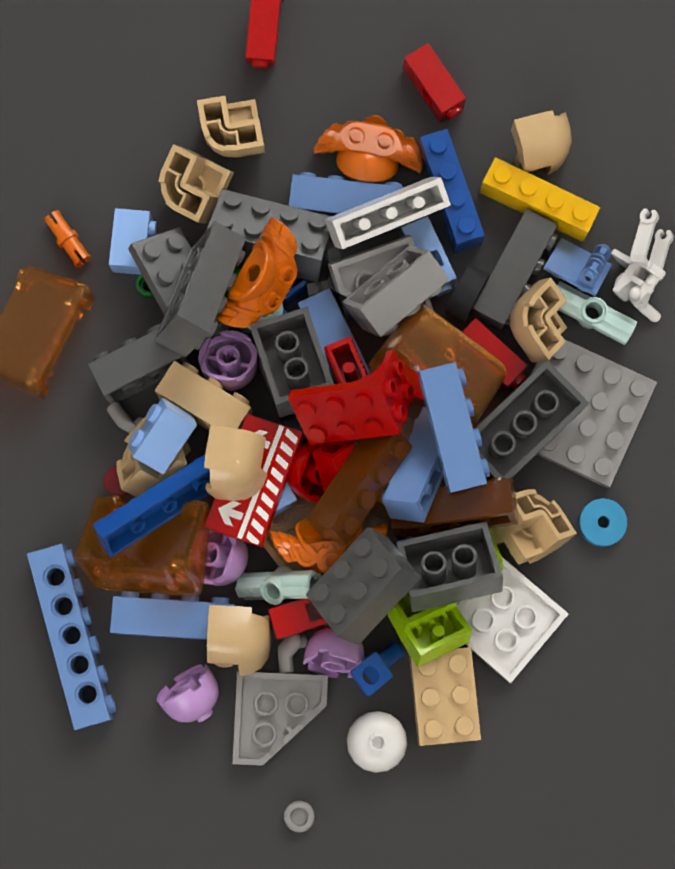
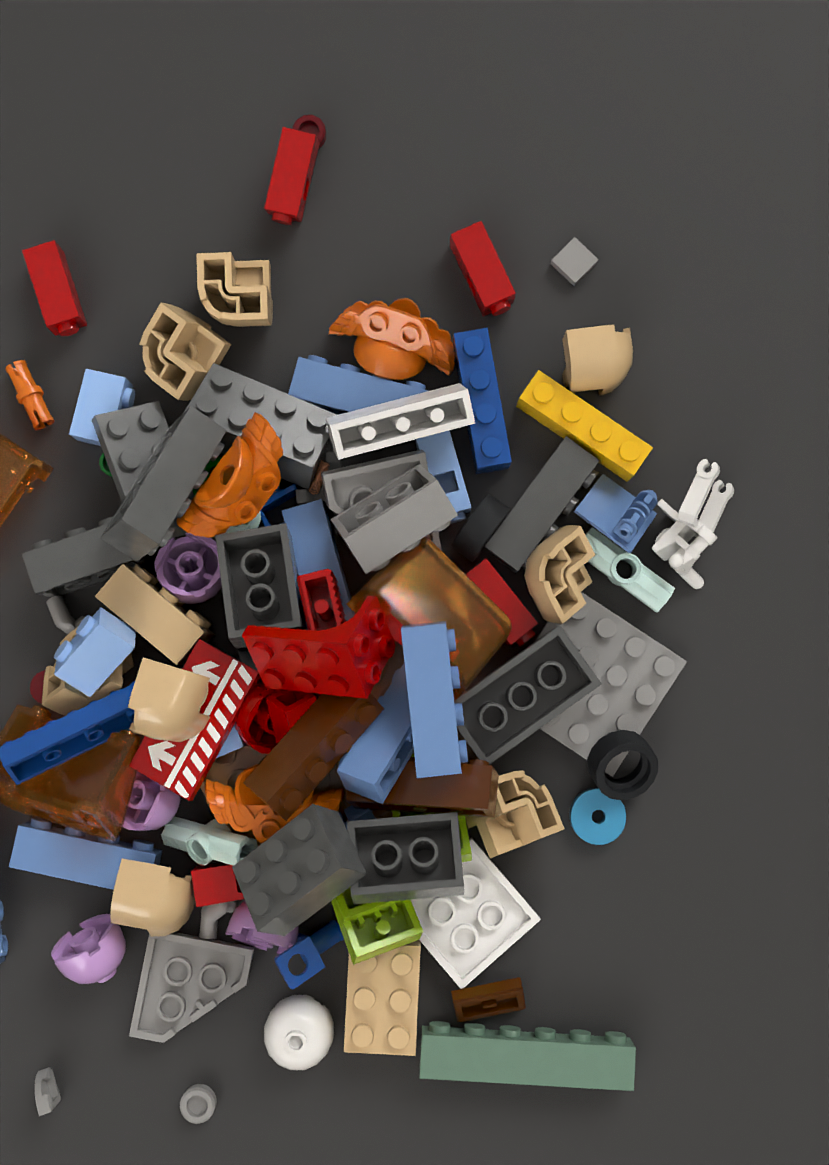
camera: 10 degrees right, 5 degrees up
(77, 147) = (54, 288): none -> red brick
(167, 822) = (46, 1091): none -> light grey tile
(324, 273) = (318, 479): none -> nougat leg
(509, 67) = (574, 261): none -> light grey tile
(533, 686) = (488, 999): none -> reddish brown tile
(575, 732) = (527, 1057): none -> sand green brick
(634, 483) = (632, 784): none -> black tyre

